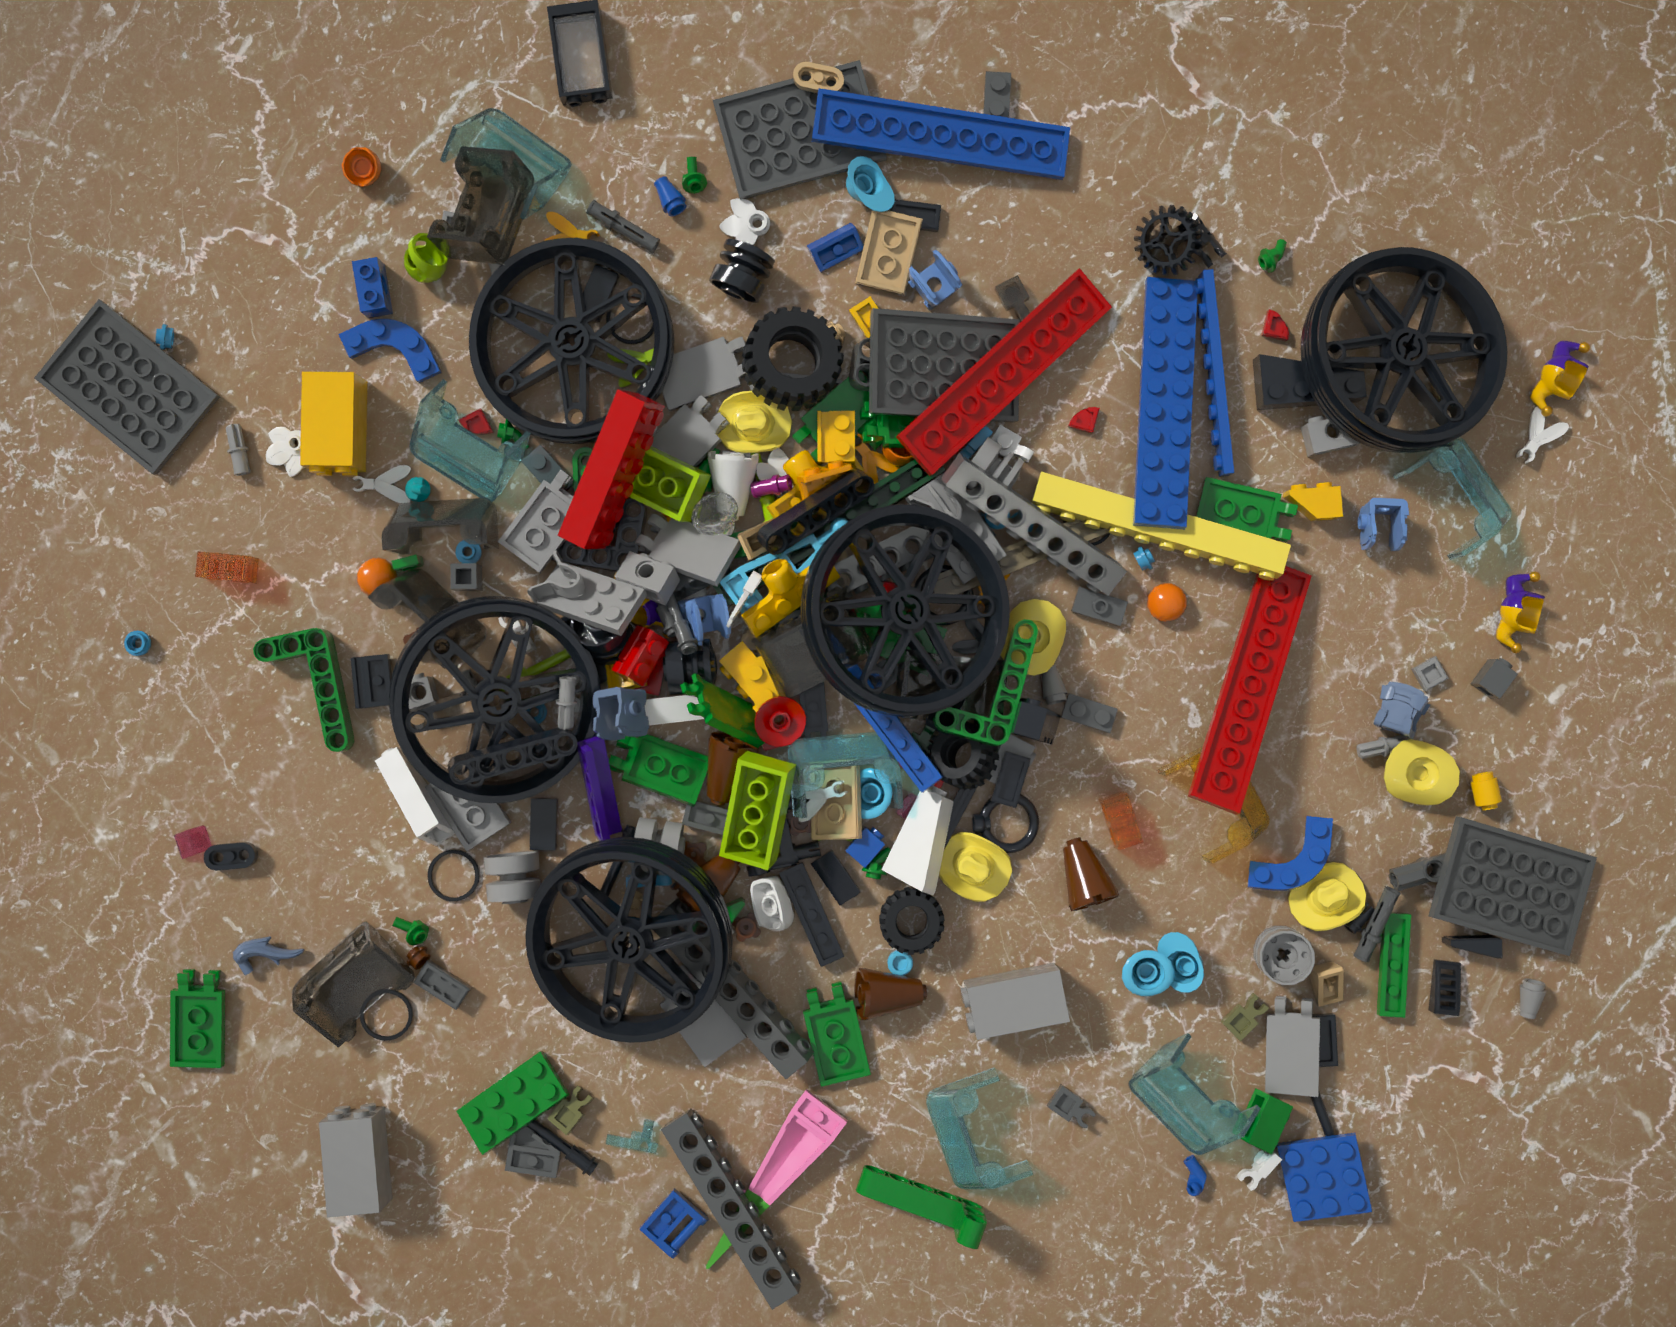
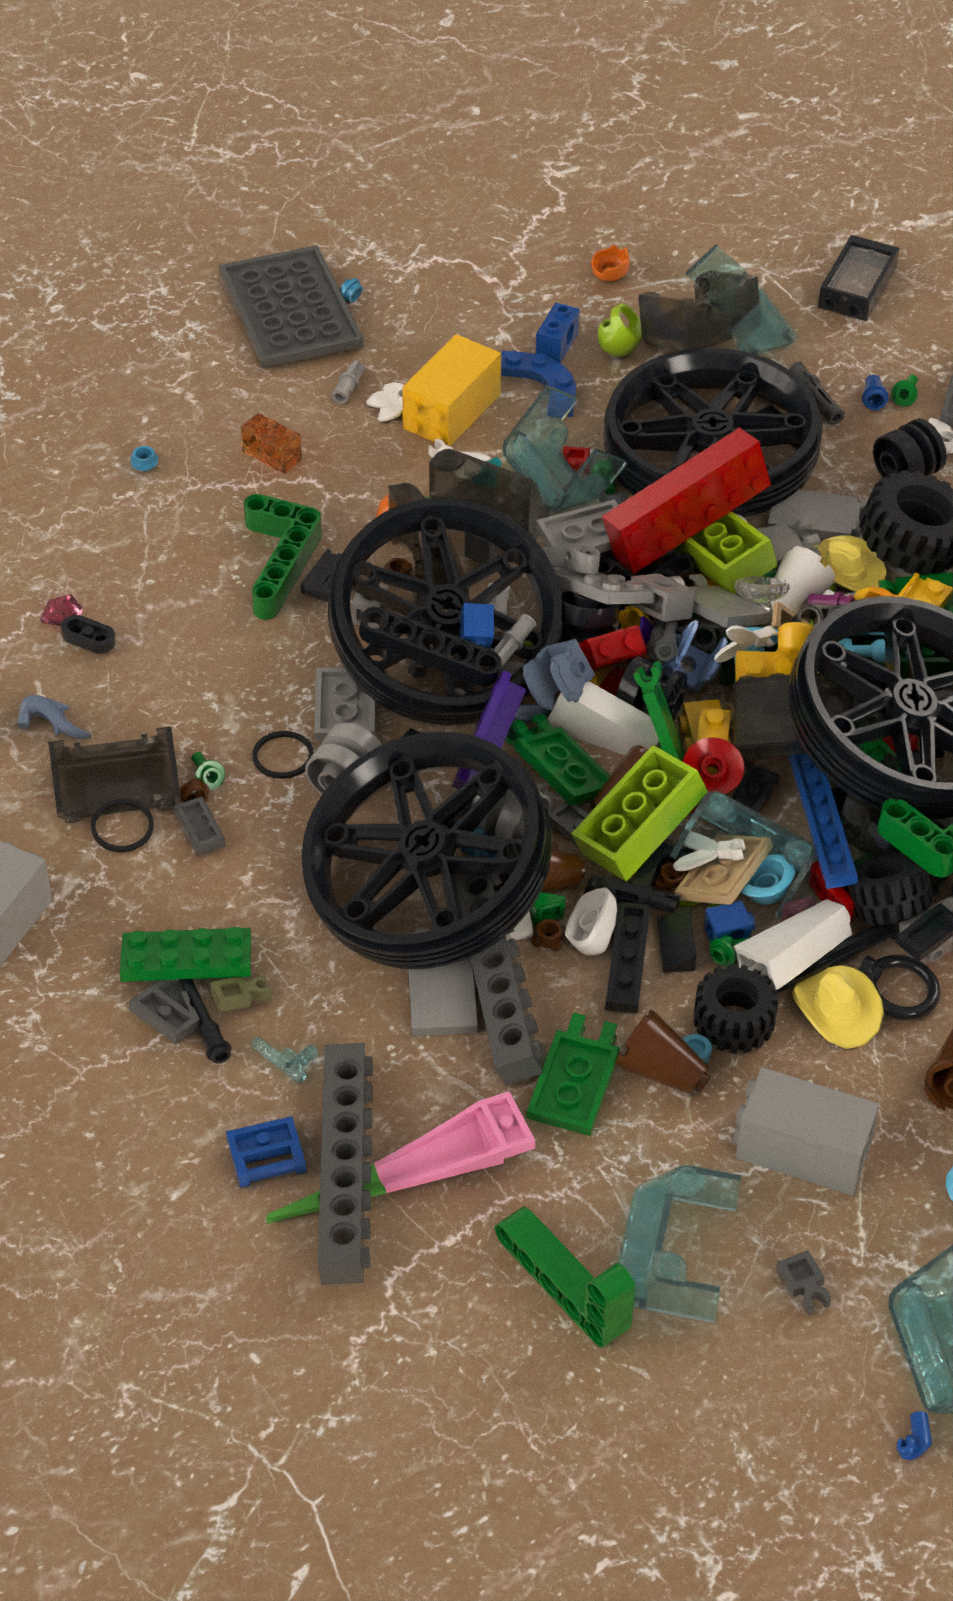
camera: 30 degrees right, 40 degrees down
(413, 797) = (300, 672): white slope -> none
(535, 715) = (477, 624): none -> blue brick

